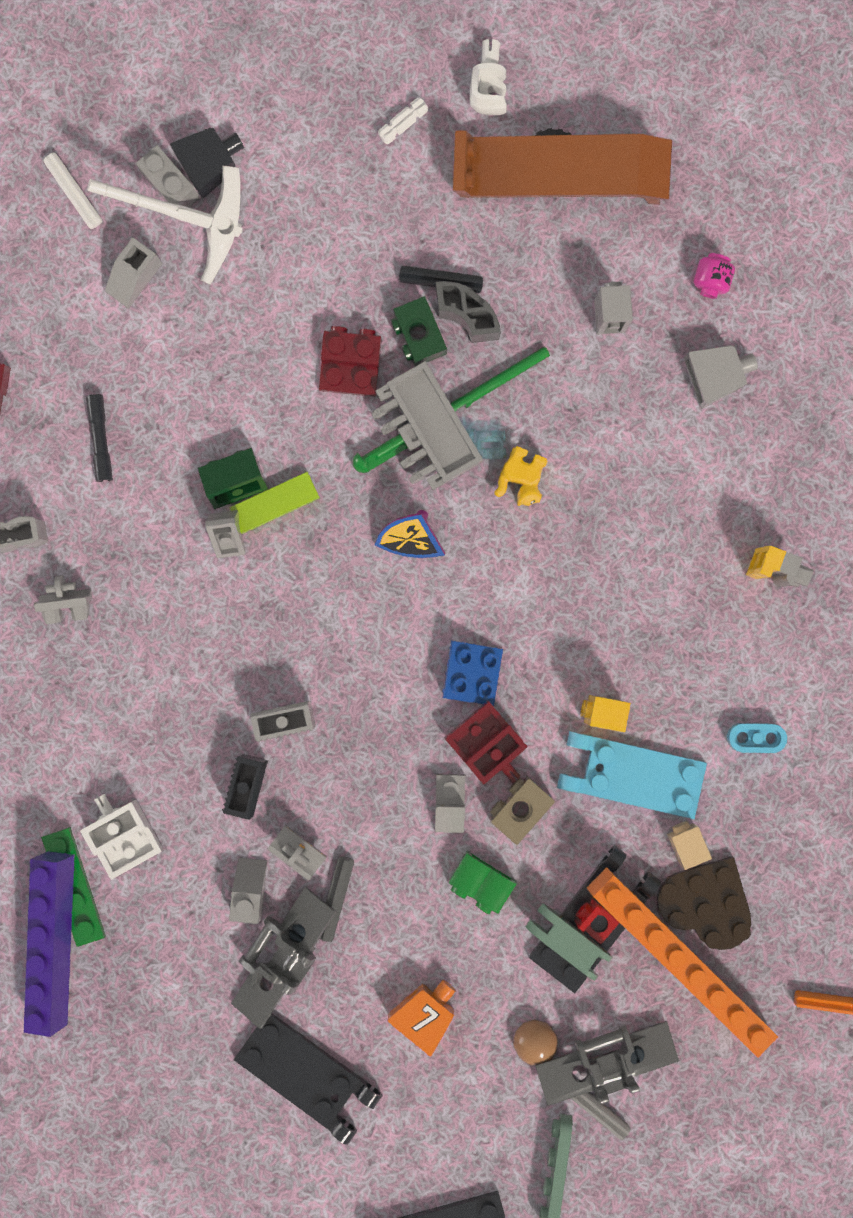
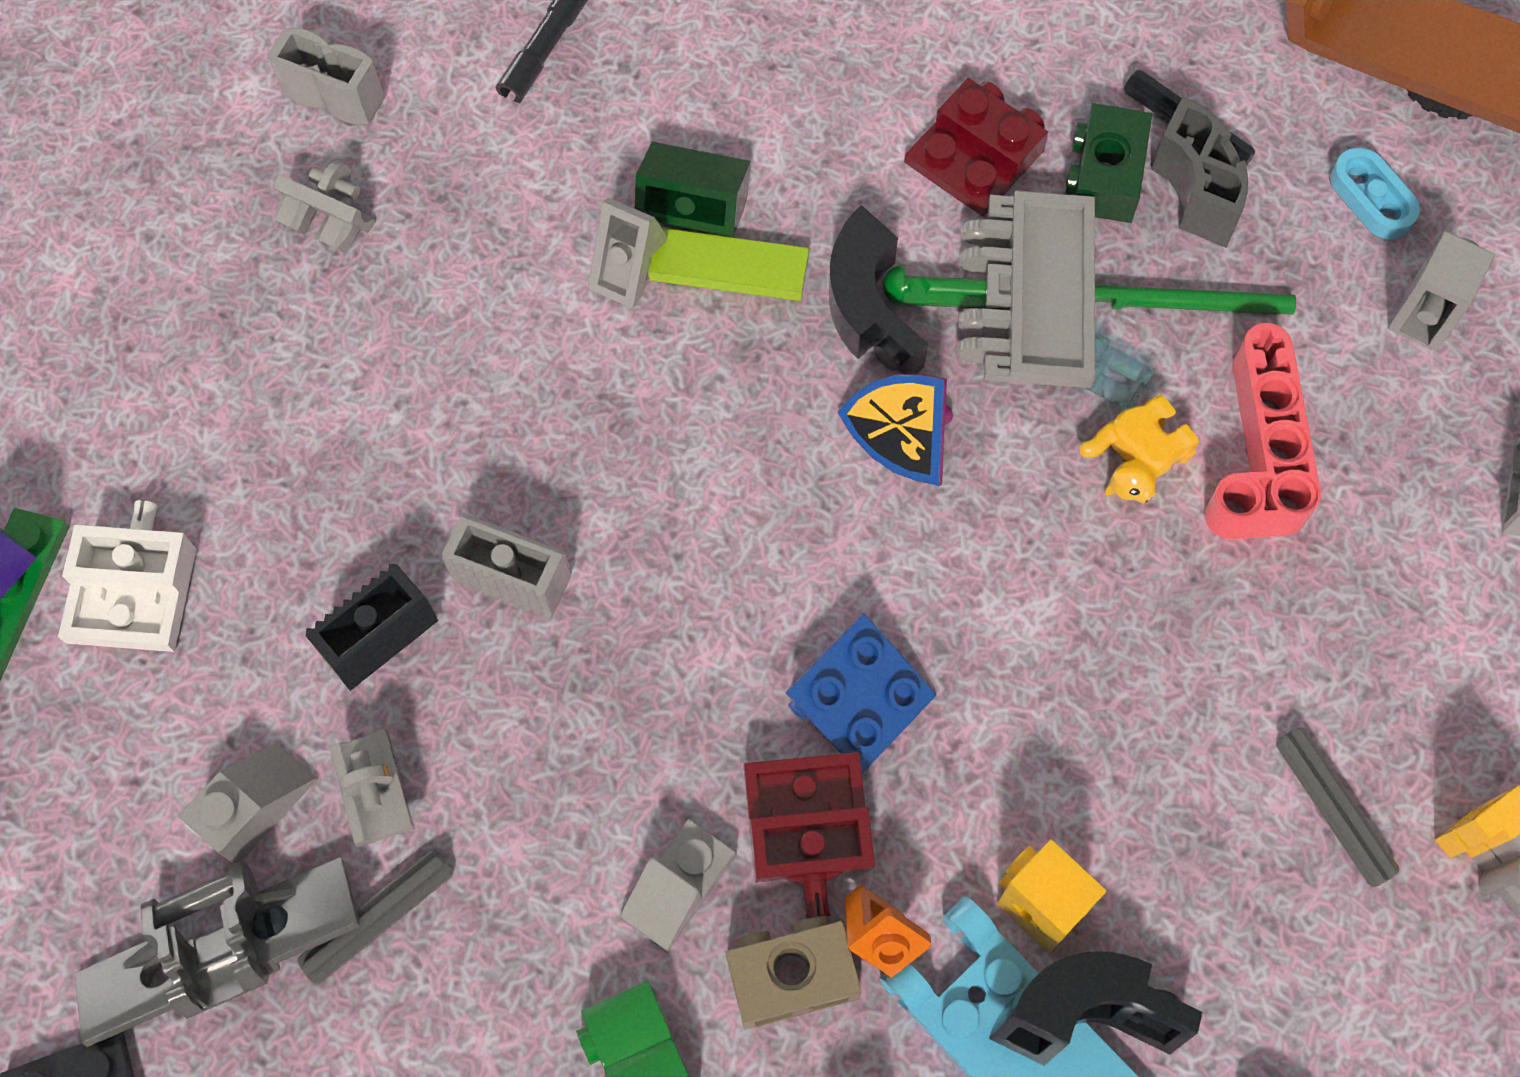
camera: 30 degrees right, 20 degrees down
(336, 470) = (860, 316): none -> black arch
(546, 771) = (882, 932): none -> orange bracket
(553, 263) = (1378, 193): none -> medium azure plate
(570, 431) = (1267, 428): none -> coral beam
(633, 757) = (1095, 989): none -> black arch
(698, 588) = (1337, 807): none -> dark grey axle

